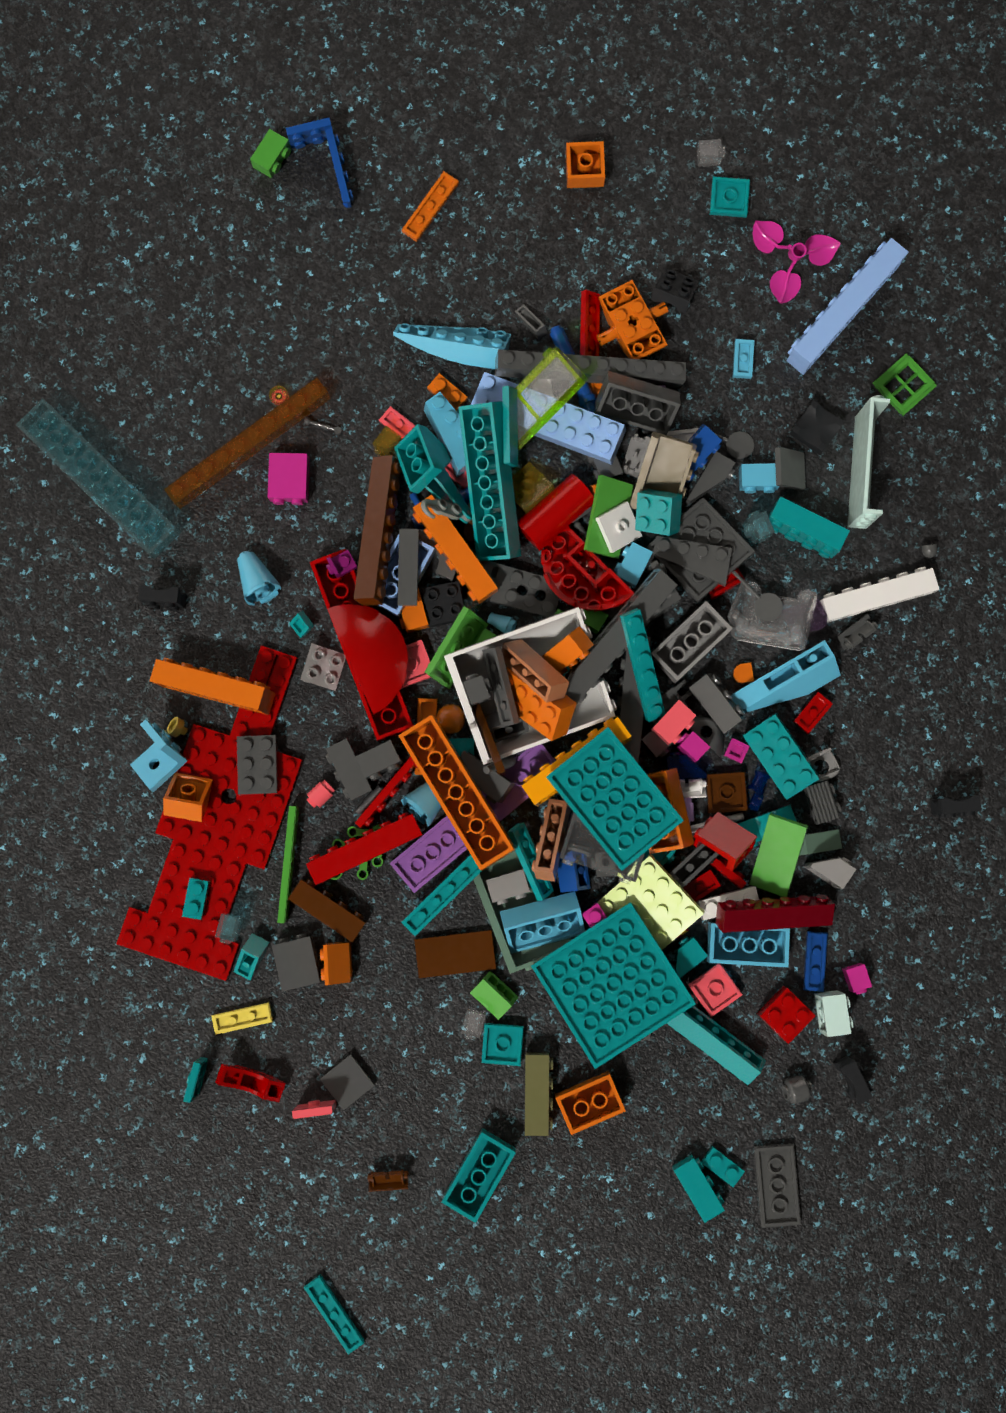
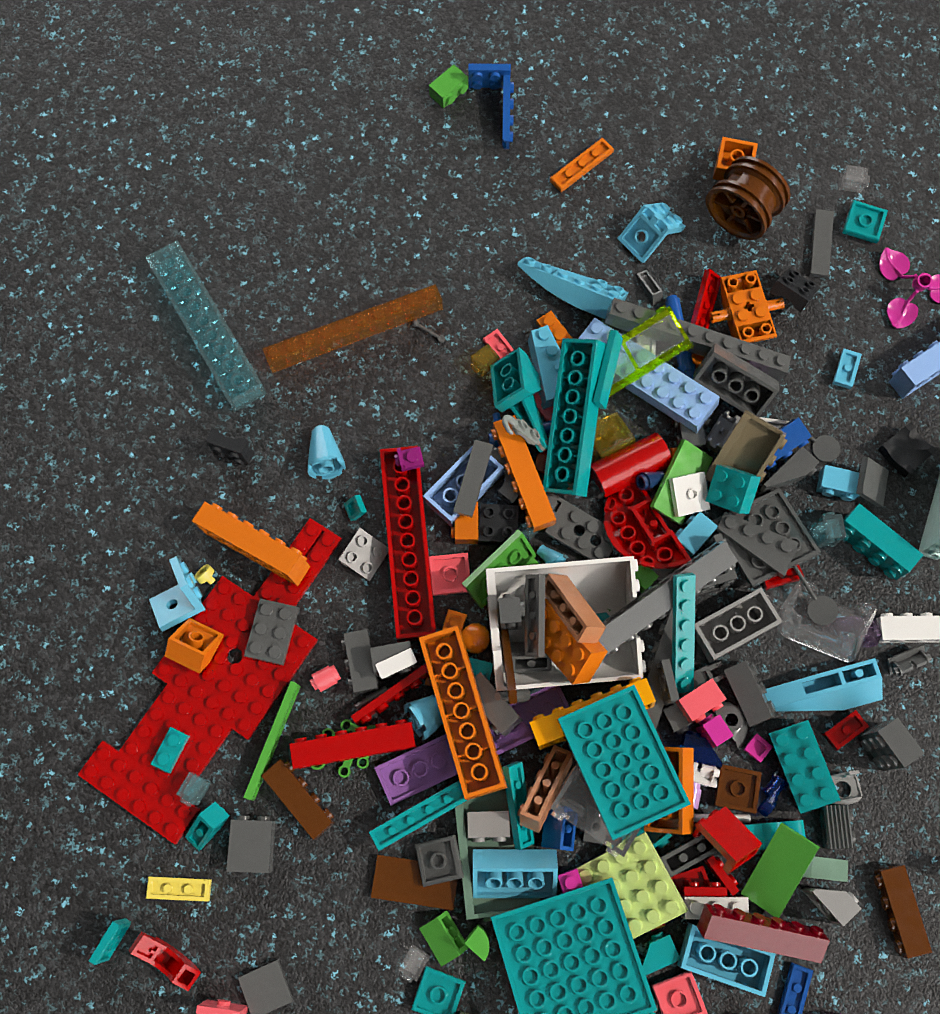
camera: 15 degrees right, 10 degrees down
(278, 395) = (394, 292): clear yellow tile -> none
(288, 478) = (382, 369): dark pink brick -> none
(337, 963) = (291, 857): orange slope -> none
(373, 650) = (418, 550): red brick -> none
(377, 531) = (452, 438): reddish brown brick -> none
(383, 764) = (396, 663): none -> white sticker
(471, 929) = (439, 860): none -> dark grey tile
(521, 254) = (656, 223): none -> medium azure bracket
(526, 989) = (478, 942): none -> bright green brick
(568, 650) = (613, 596): orange brick -> none
(577, 523) = (648, 480): none -> dark blue cone
(606, 206) = (748, 198): none -> reddish brown wheel
(638, 714) = (667, 682): none -> dark grey tile
(691, 231) = (821, 243): none -> dark grey tile
(722, 888) = (712, 889): none -> red plate
(743, 673) = (782, 671): orange tile -> none
(854, 716) = (890, 745): none -> dark grey brick
(894, 860) = (902, 911): none -> reddish brown brick

